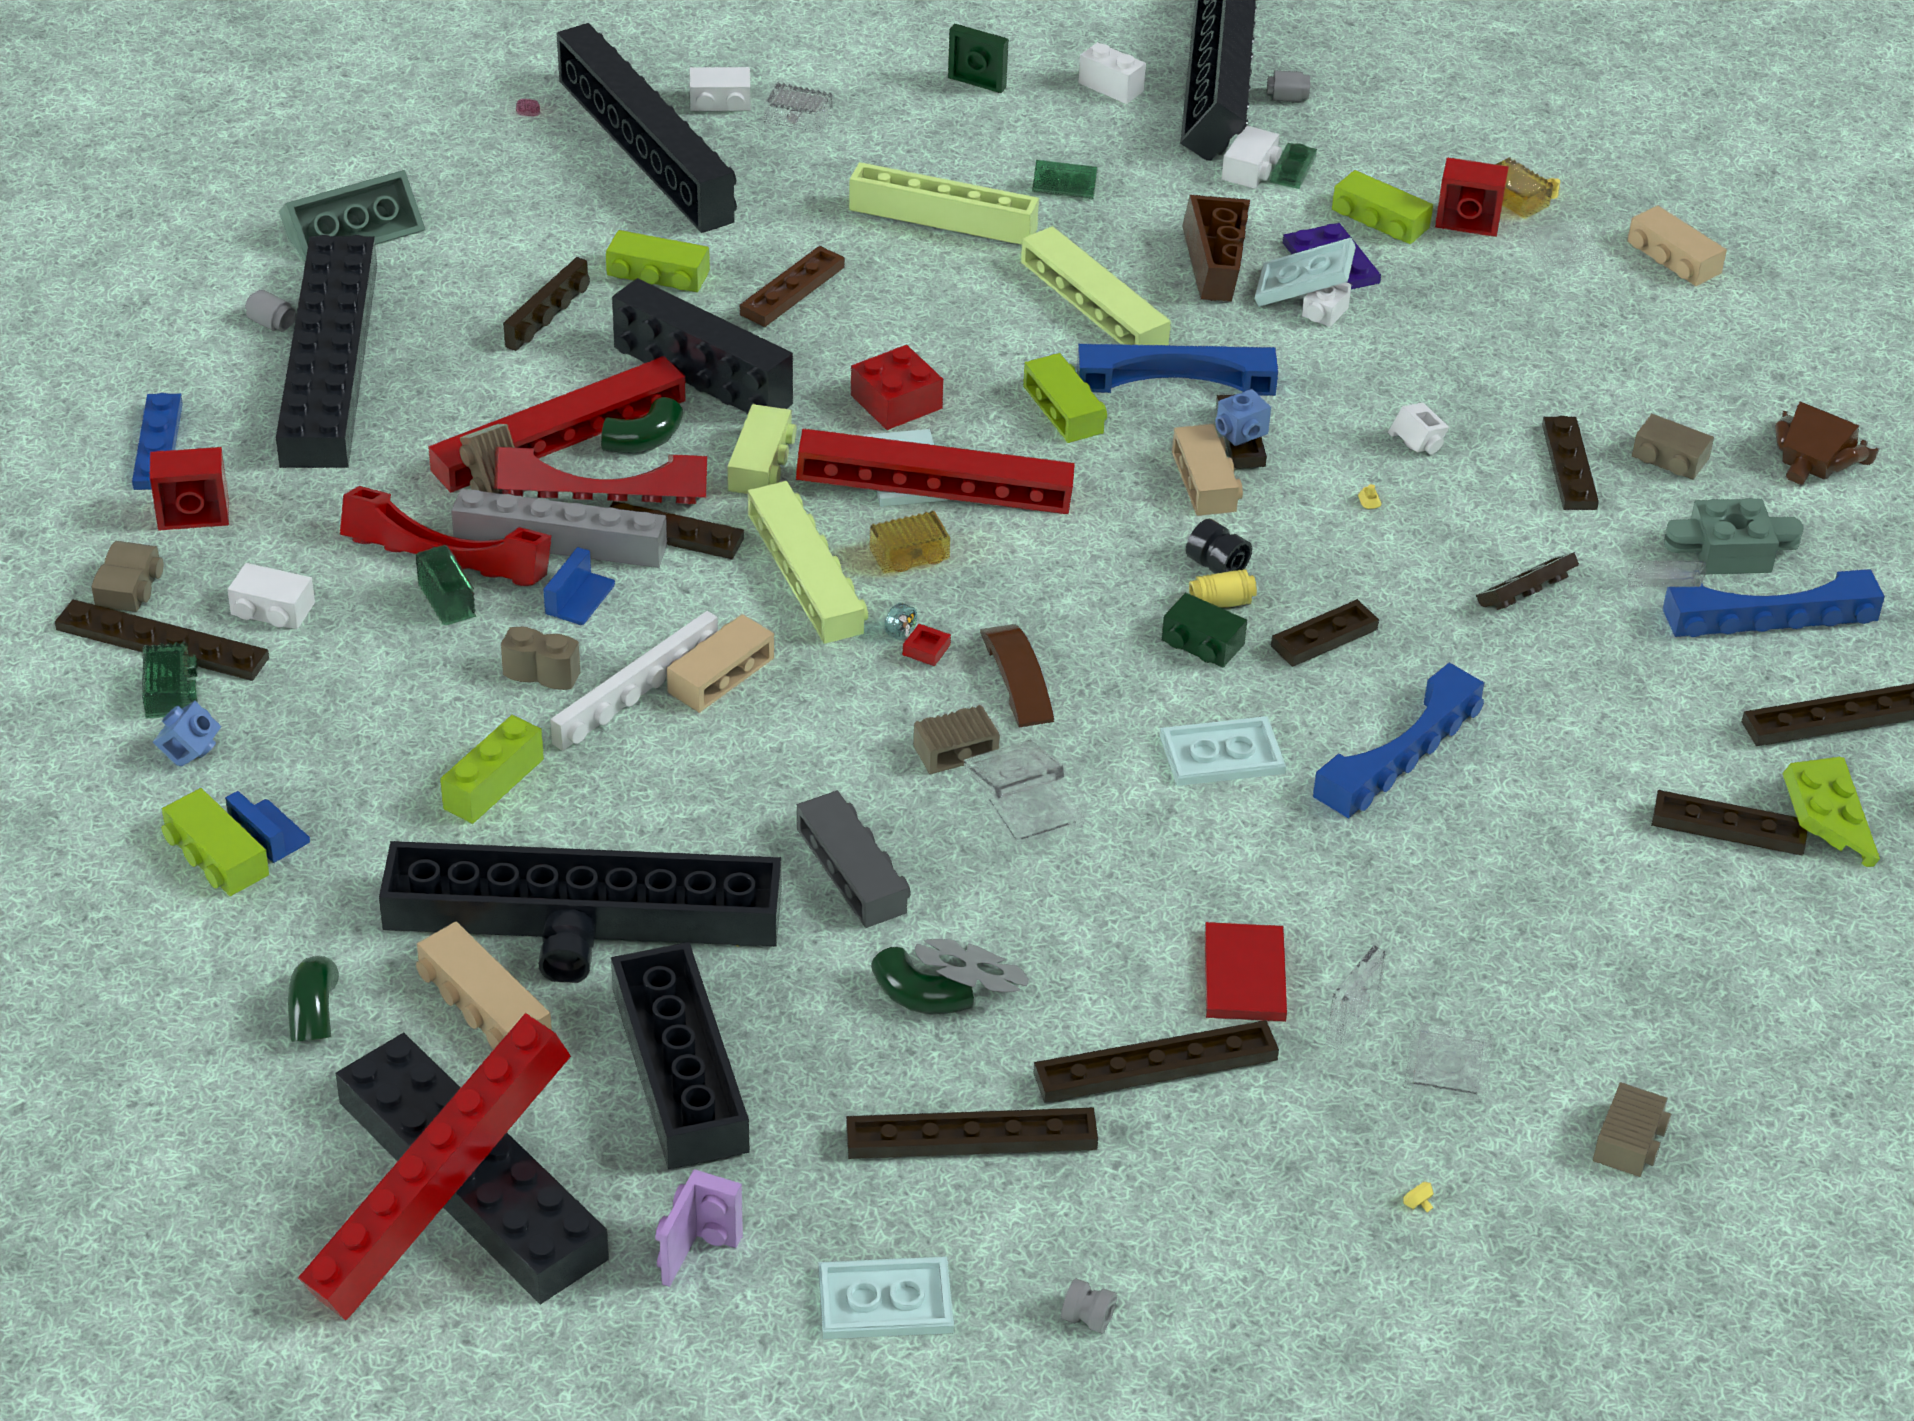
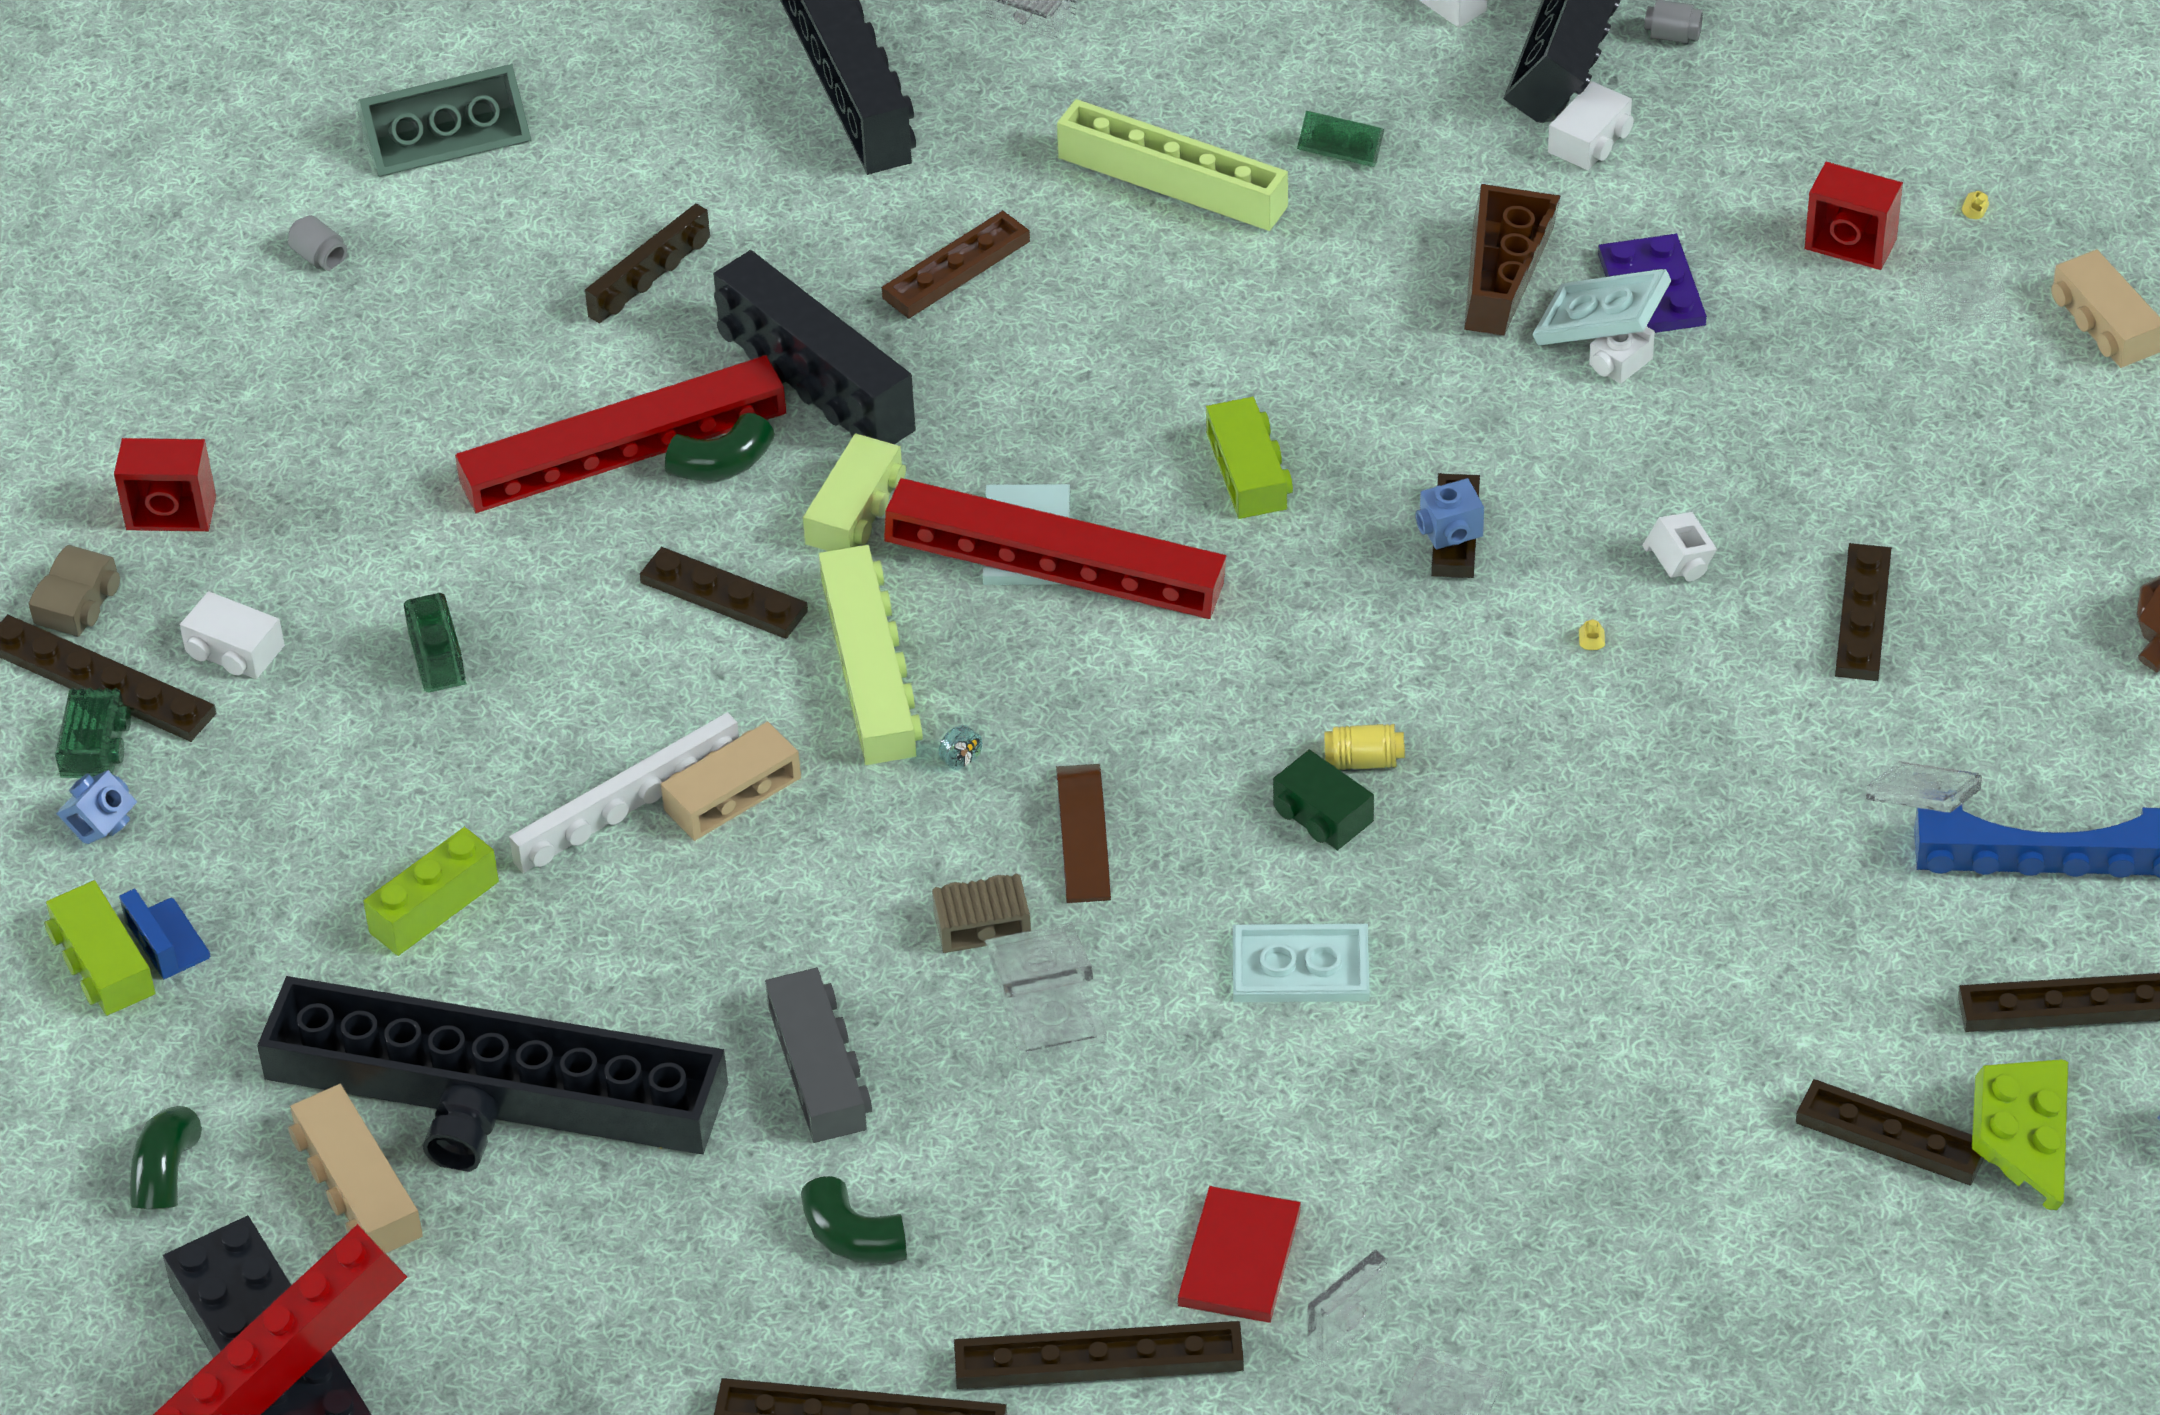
camera: 15 degrees right, 5 degrees up
(157, 433) = (152, 396): blue plate -> none
(327, 353) = (370, 307): black brick -> none
(373, 518) = (372, 546): red arch -> none
(479, 454) = (524, 486): dark tan brick -> none
(540, 658) = (521, 752): dark tan brick -> none
(575, 590) = (588, 662): blue panel -> none
(605, 532) = (586, 579): light grey brick -> none
(658, 261) = (798, 214): lime brick -> none
(680, 477) = (552, 503): red arch -> none
(680, 1056) = (551, 1279): black brick -> none
(896, 387) = (1042, 423): red brick -> none
(909, 542) = (1000, 641): clear yellow brick -> none
(926, 644) = (983, 782): red plate -> none
(971, 973) = (898, 1224): light grey piece -> none
(1094, 289) = (1331, 308): yellowish green brick -> none
(1206, 469) = (1394, 577): tan brick -> none
(1217, 548) = (1372, 691): black wheel -> none
(1238, 367) = (1317, 417): blue arch -> none
(1293, 165) = (1646, 141): clear green plate -> none
(1324, 632) = (1473, 818): dark brown plate -> none
(1355, 780) = (1442, 1023): blue arch -> none
(1382, 207) = (1738, 216): lime brick -> none
(1525, 190) = (1930, 203): clear yellow brick -> none
(1528, 582) = (1750, 776): dark brown plate -> none
(1672, 446) = (2000, 604): dark tan brick -> none
(1733, 535) = (2027, 760): sand green brick -> none

